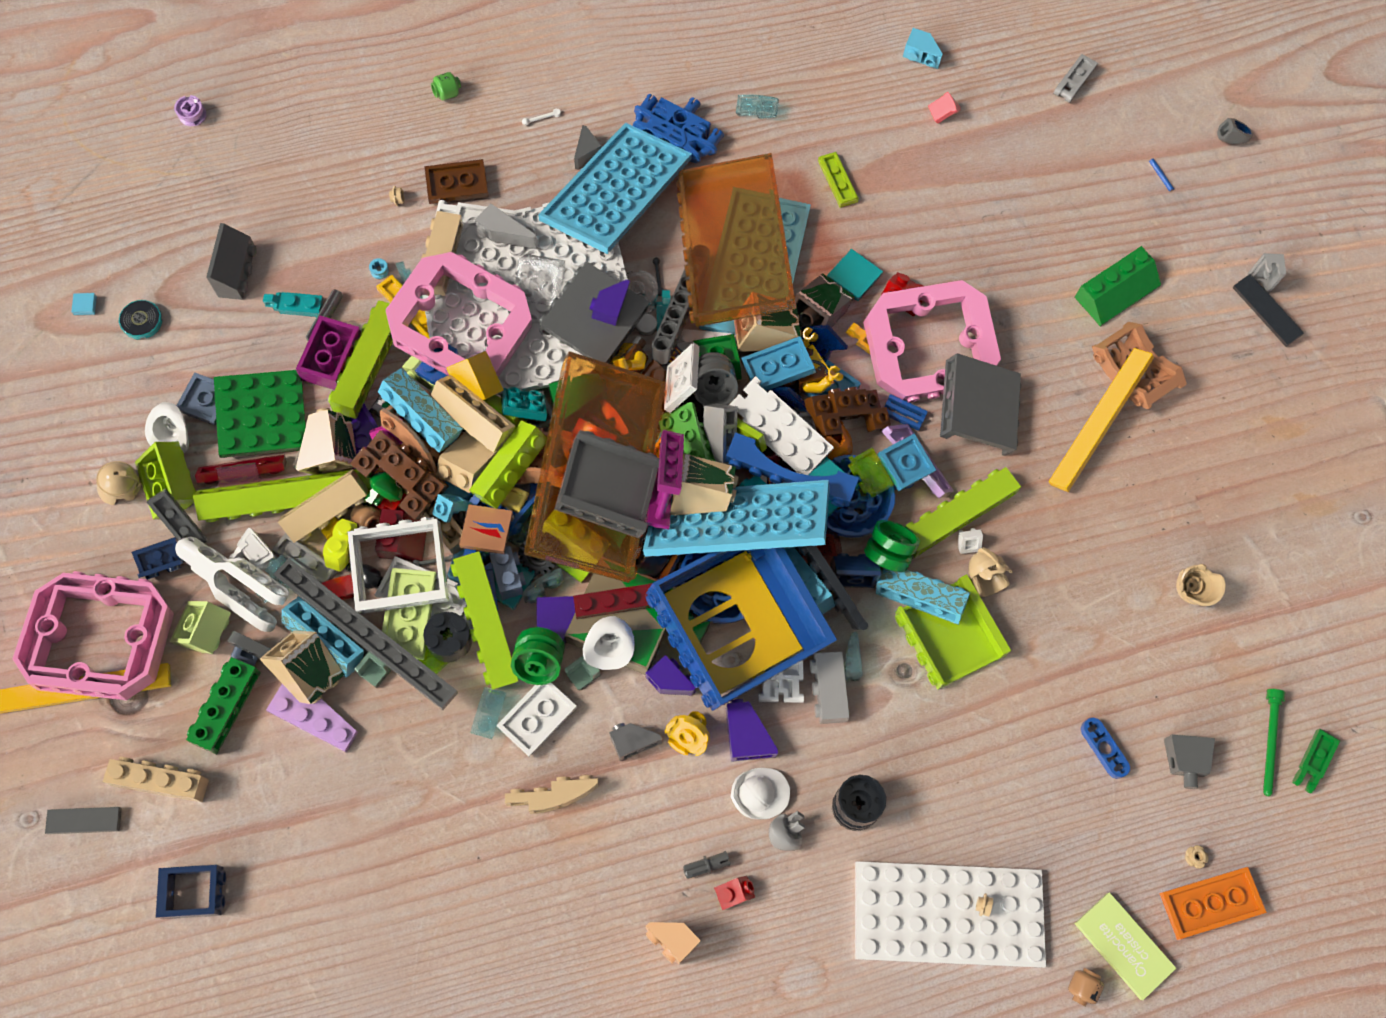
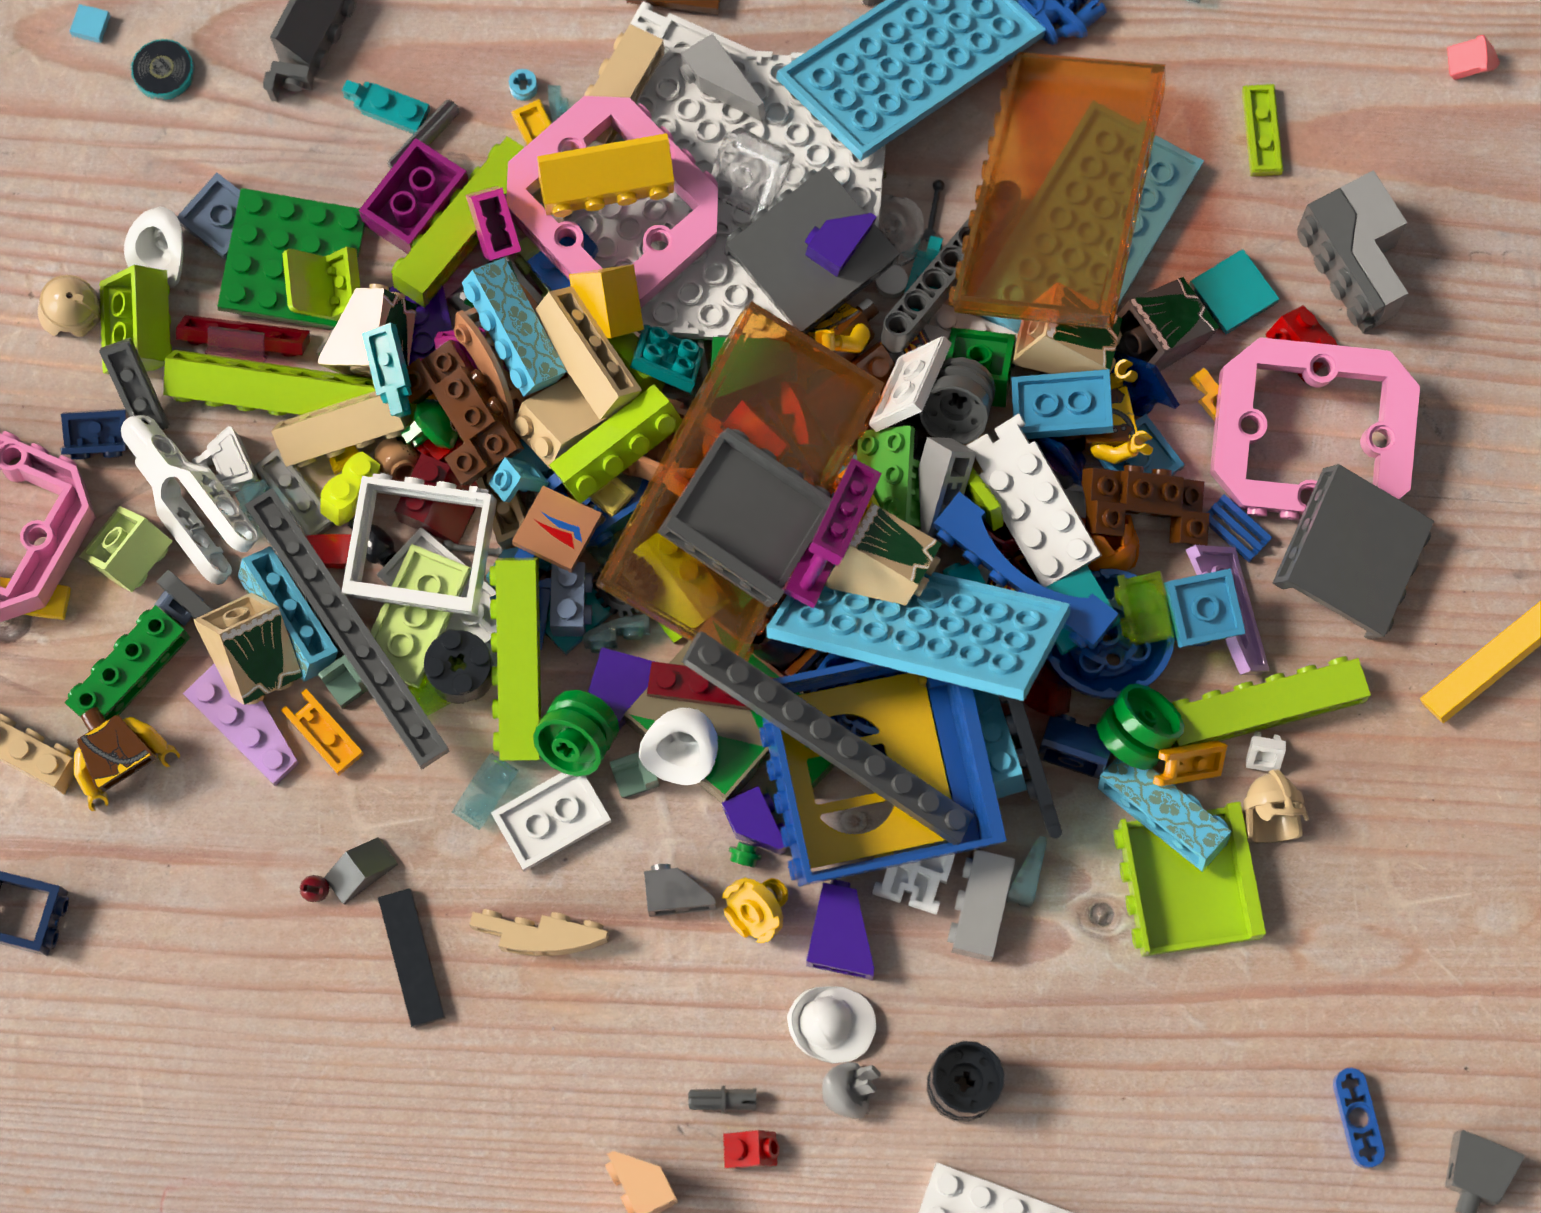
camera: 25 degrees right, 5 degrees up
(225, 301) = (291, 76): none -> dark grey bracket
(229, 762) = (114, 752): none -> torso
(283, 421) = (320, 283): none -> lime bracket
(345, 458) = (388, 368): none -> hinge
(370, 708) = (324, 734): none -> light orange hinge
(386, 350) = (493, 223): none -> dark pink brick
(393, 806) = (317, 881): none -> dark red hinge
(419, 789) = (359, 869): none -> dark grey slope
(451, 299) = (606, 175): none -> yellow slope
(472, 837) = (411, 958): none -> black tile
(669, 701) = (745, 854): none -> green plate
(702, 607) = (827, 738): none -> dark grey plate
(913, 228) = (1348, 240): none -> piece
(929, 559) = (1191, 763): none -> light orange hinge

